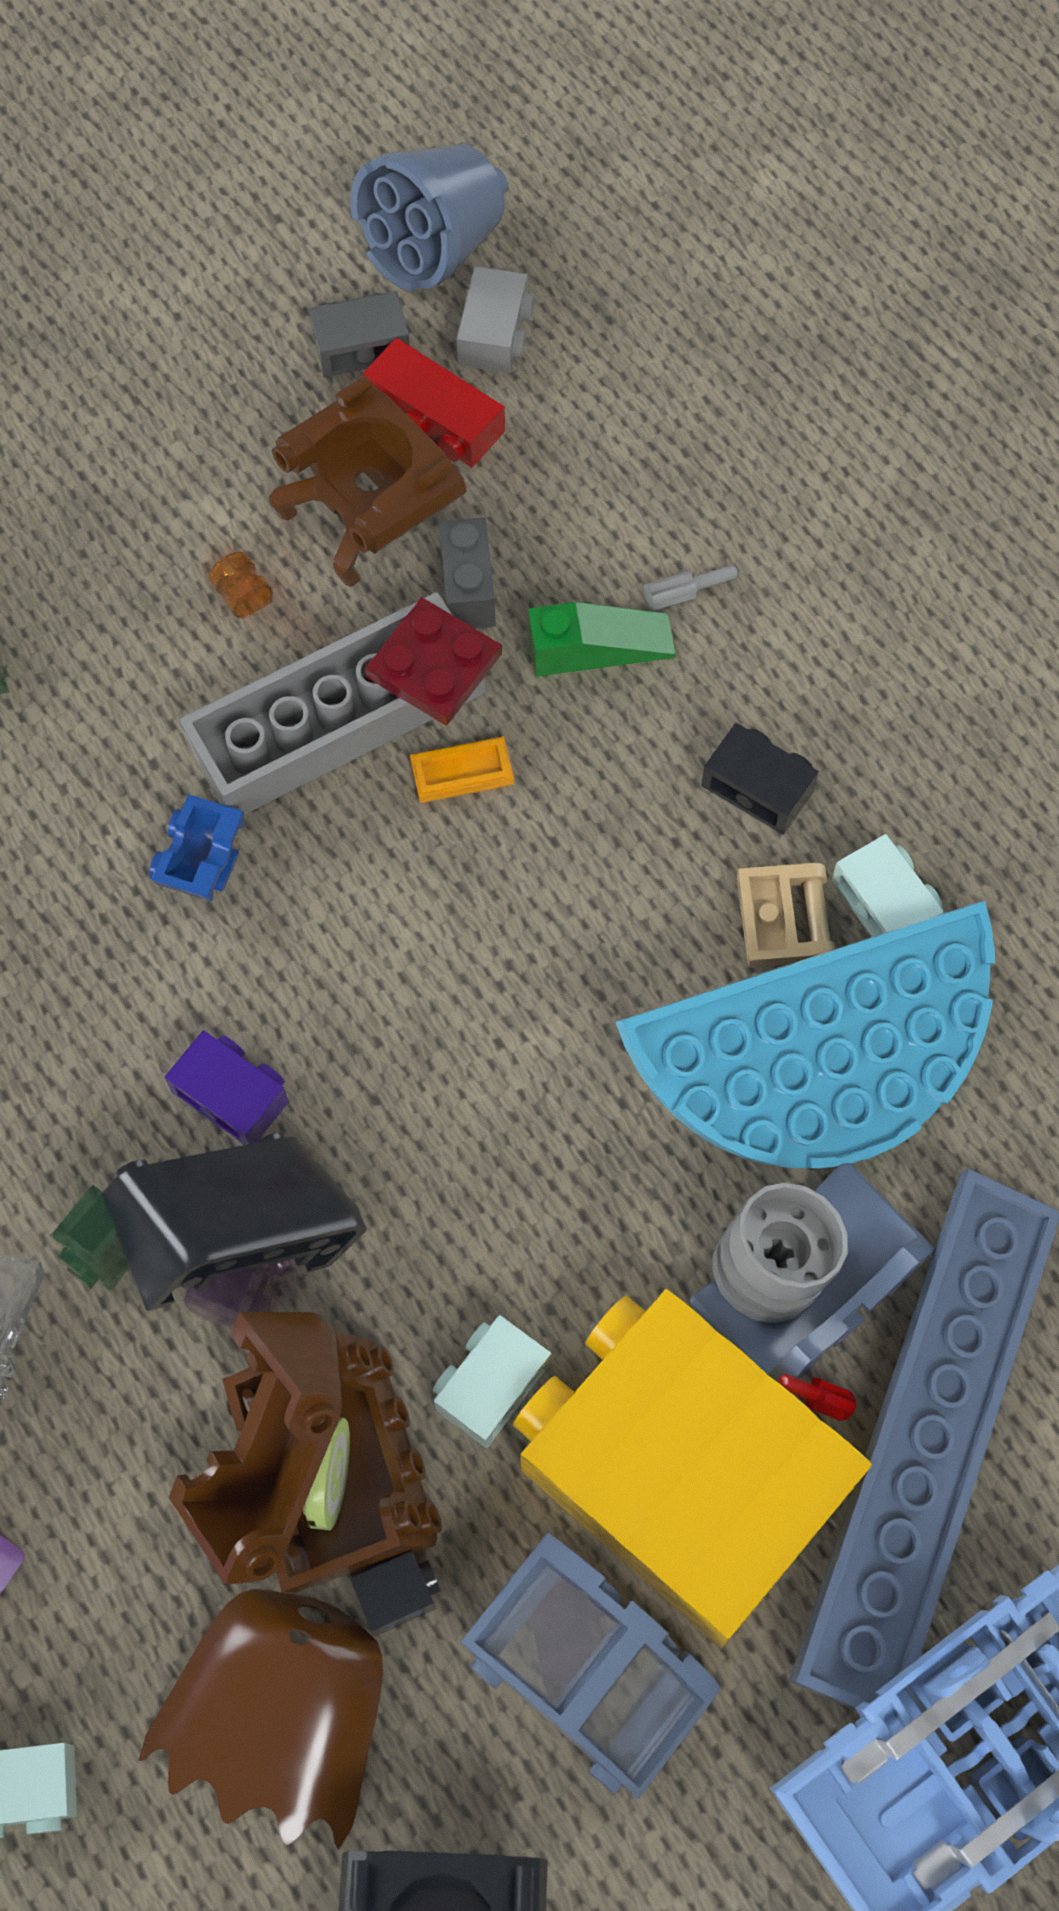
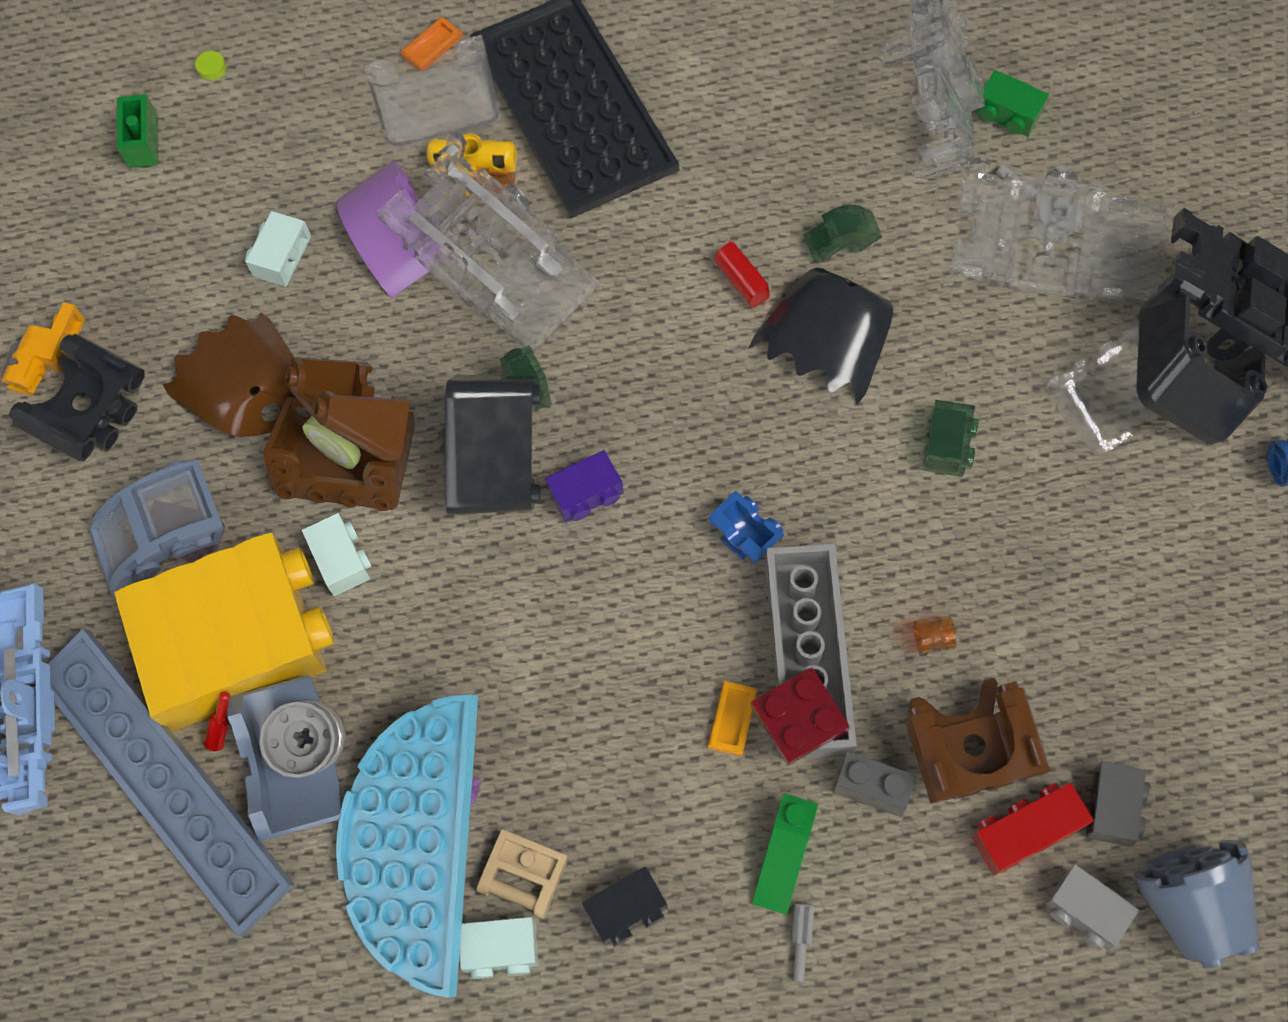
camera: 120 degrees right, 0 degrees up
(396, 1592) = (251, 458): black brick -> none

